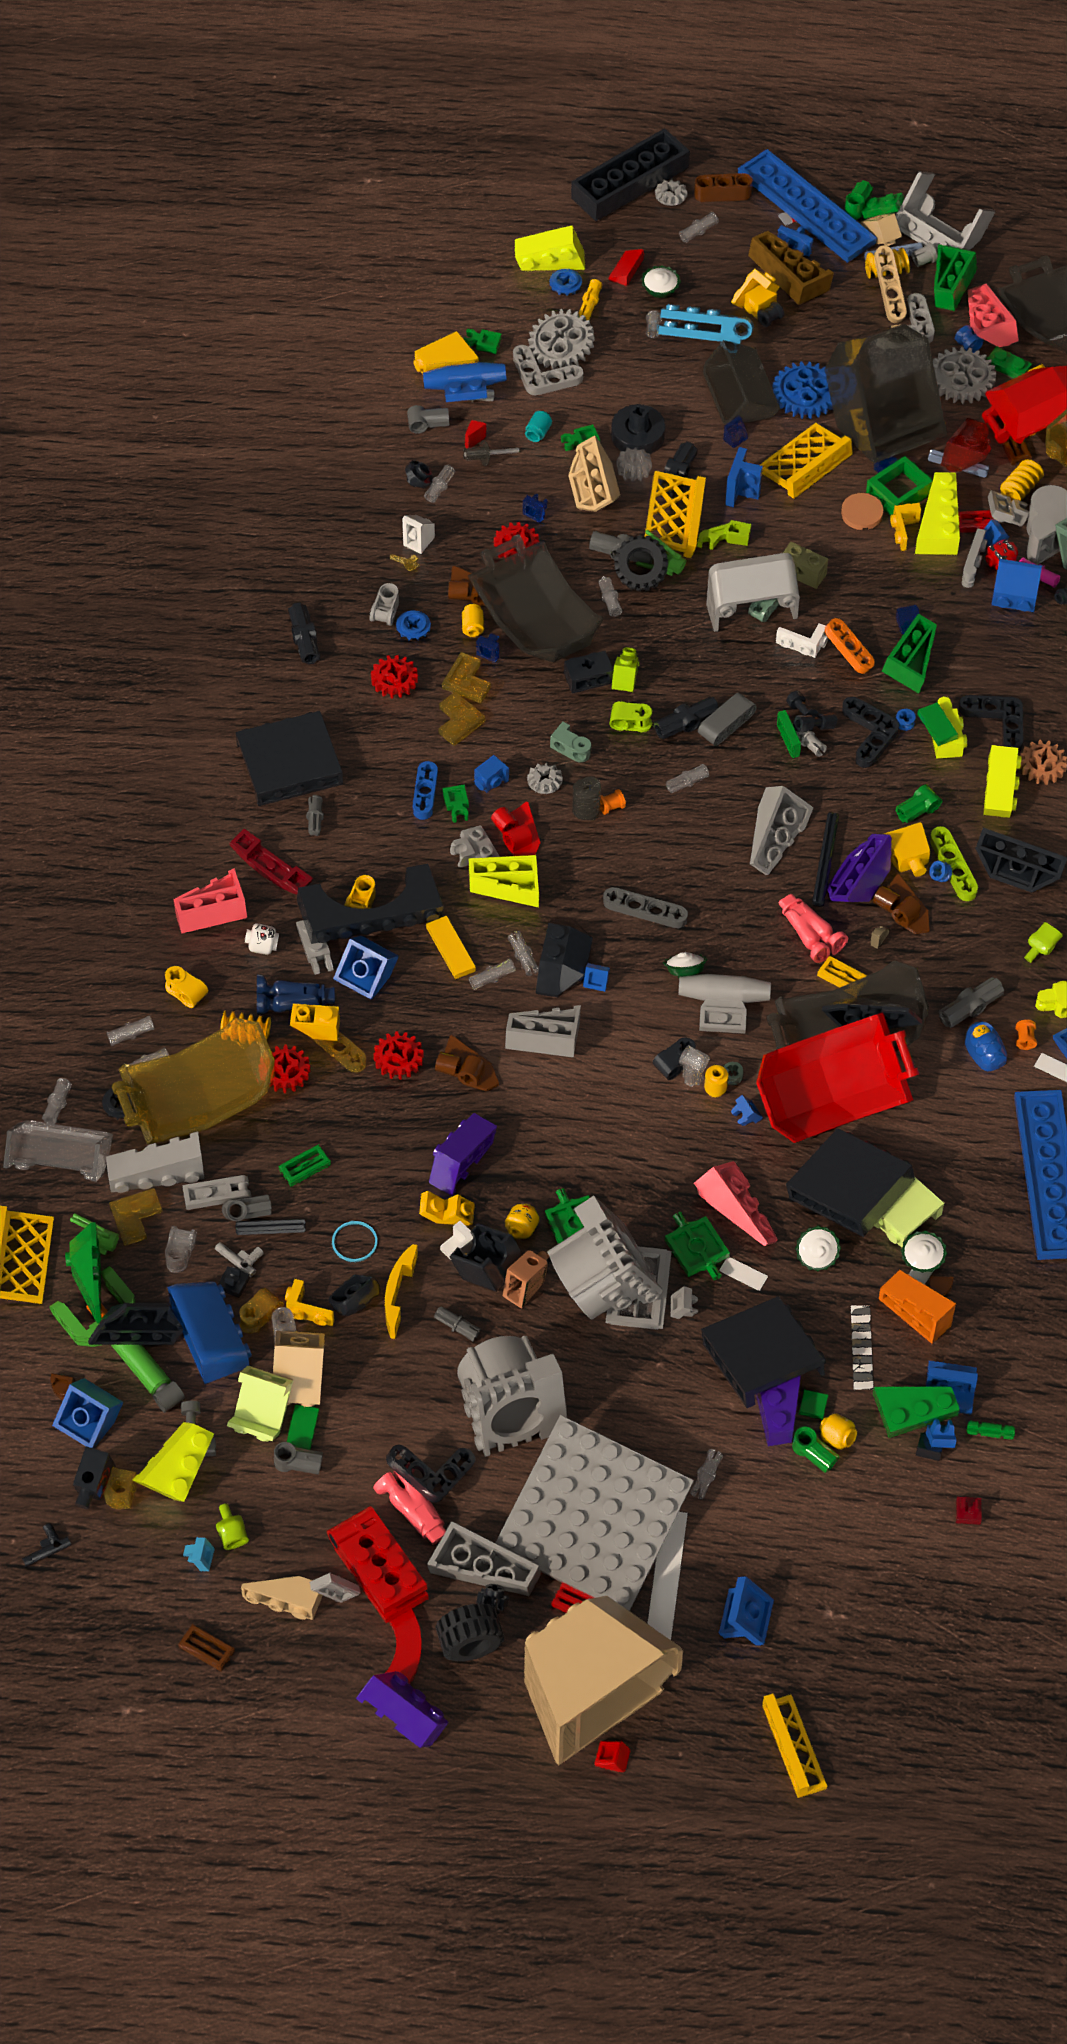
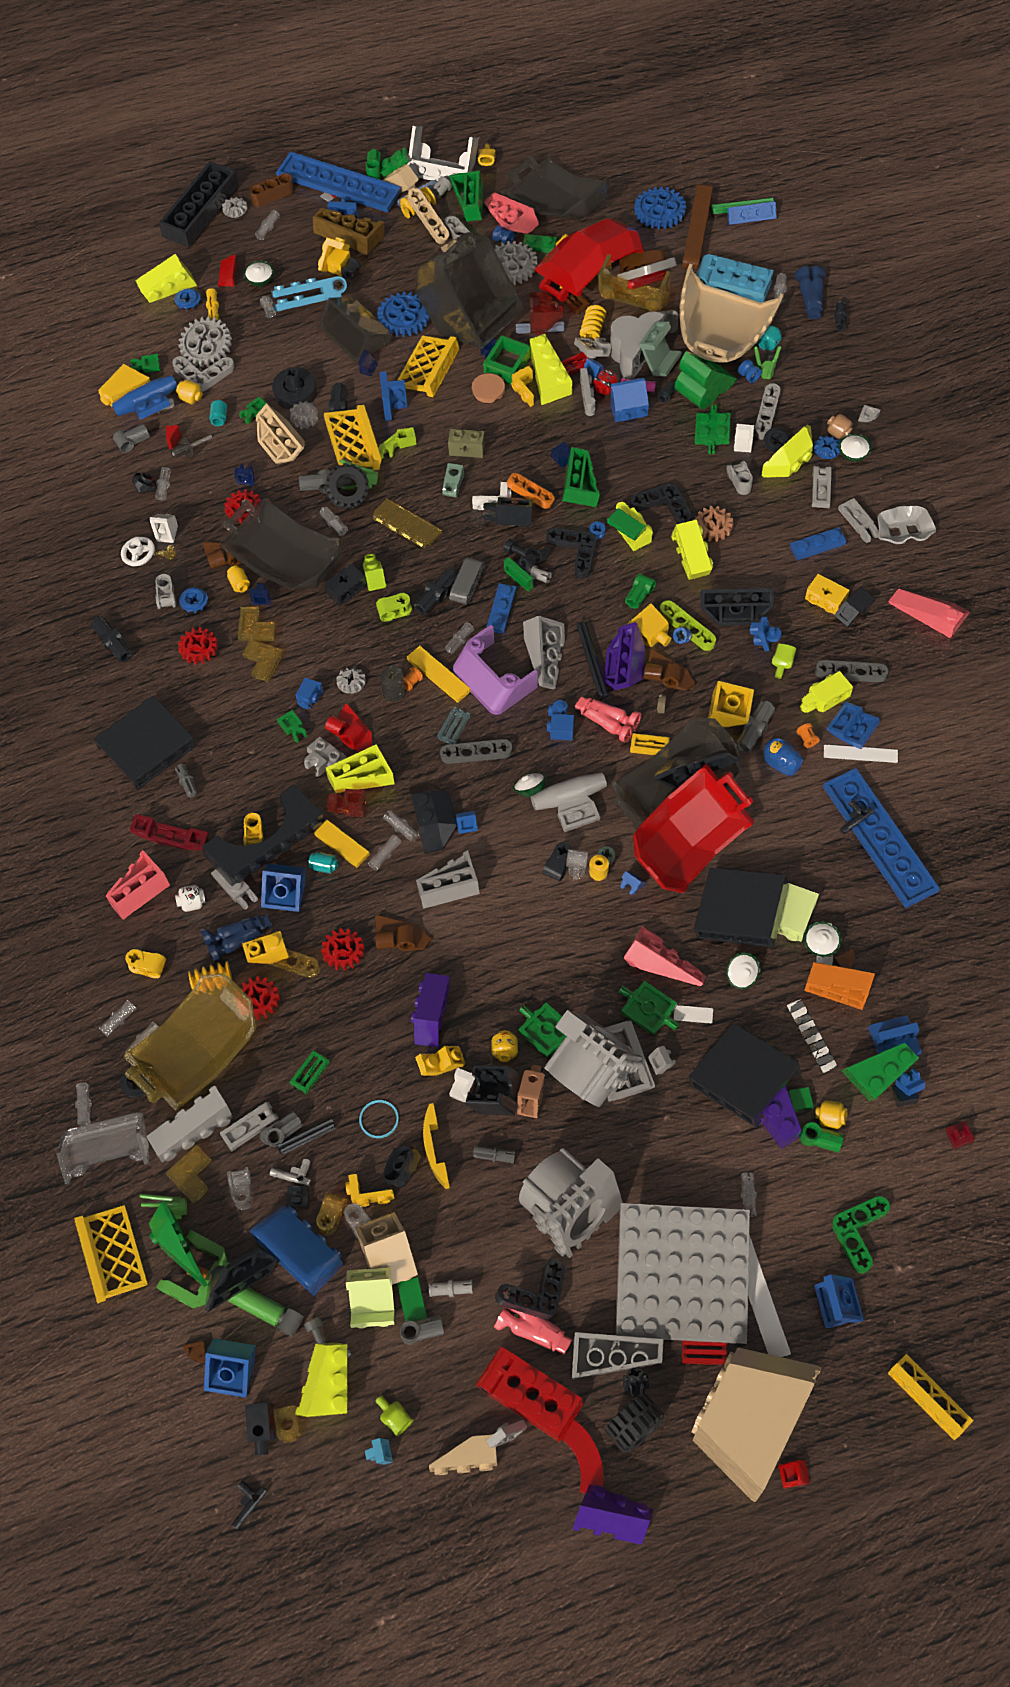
camera: 20 degrees left, 5 degrees up
(224, 1658) = (403, 1530): reddish brown tile -> none
(348, 1433) = (451, 1288): none -> light grey pin
(376, 545) = (136, 548): none -> white piece
(420, 958) = (323, 862): none -> teal brick
(429, 797) = (261, 732): blue beam -> none
(481, 908) = (351, 804): none -> clear red brick
(516, 390) = (189, 391): none -> yellow head
(570, 744) = (358, 646): sand green leg -> none
(640, 861) = (459, 713): none -> clear light blue tile
(645, 809) = (438, 674): none -> yellow tile
(691, 630) = (406, 523): none -> clear yellow windscreen
(695, 852) = (493, 692): none -> medium lavender windscreen
(751, 581) = (438, 469): light grey windscreen -> none
(751, 764) = (501, 607): none -> blue plate
(754, 914) = (561, 724): none -> blue brick
(796, 1554) = (851, 1230): none -> green beam
(813, 660) = (509, 511): none -> black hinge
(952, 966) = (731, 704): none -> yellow slope
(991, 1430) = (943, 1061): green axle -> none
(998, 236) = (486, 155): none -> yellow piece
(1031, 1140) = (856, 816): none -> black hose
(1034, 904) = (764, 633): none -> blue hips

